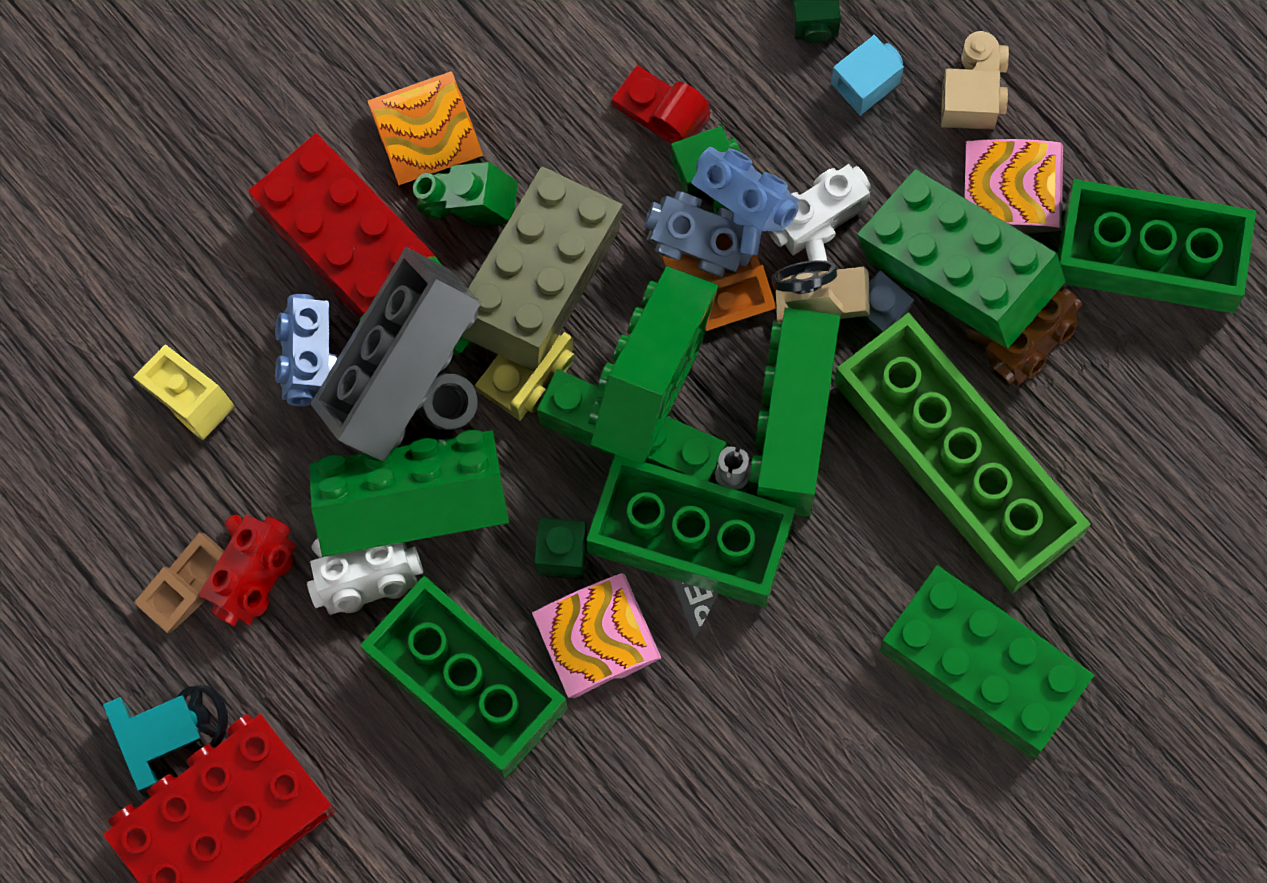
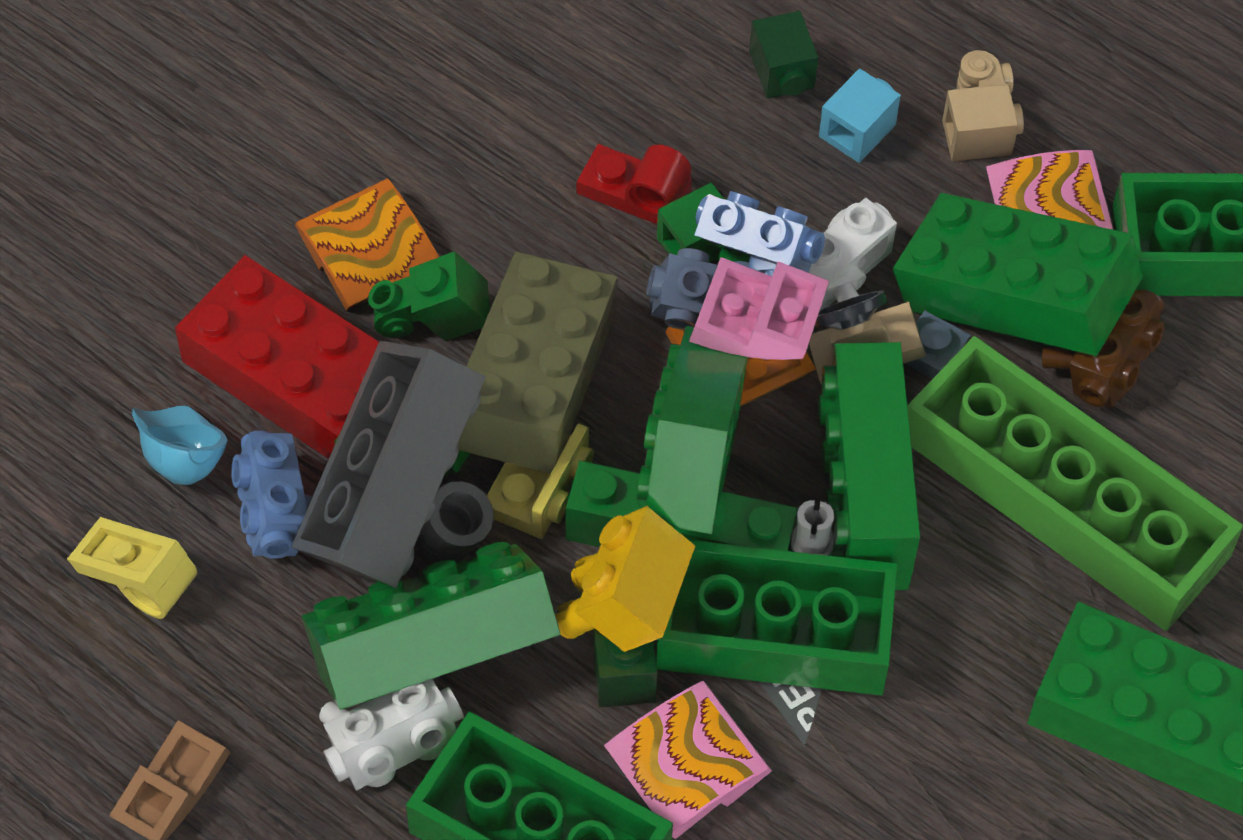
camera: 15 degrees left, 15 degrees down
(236, 279) = (179, 443): none -> medium azure cap
(248, 568) = (247, 749): red brick -> none
(570, 491) = (629, 581): none -> yellow brick
(727, 268) = (758, 312): none -> bright pink slope

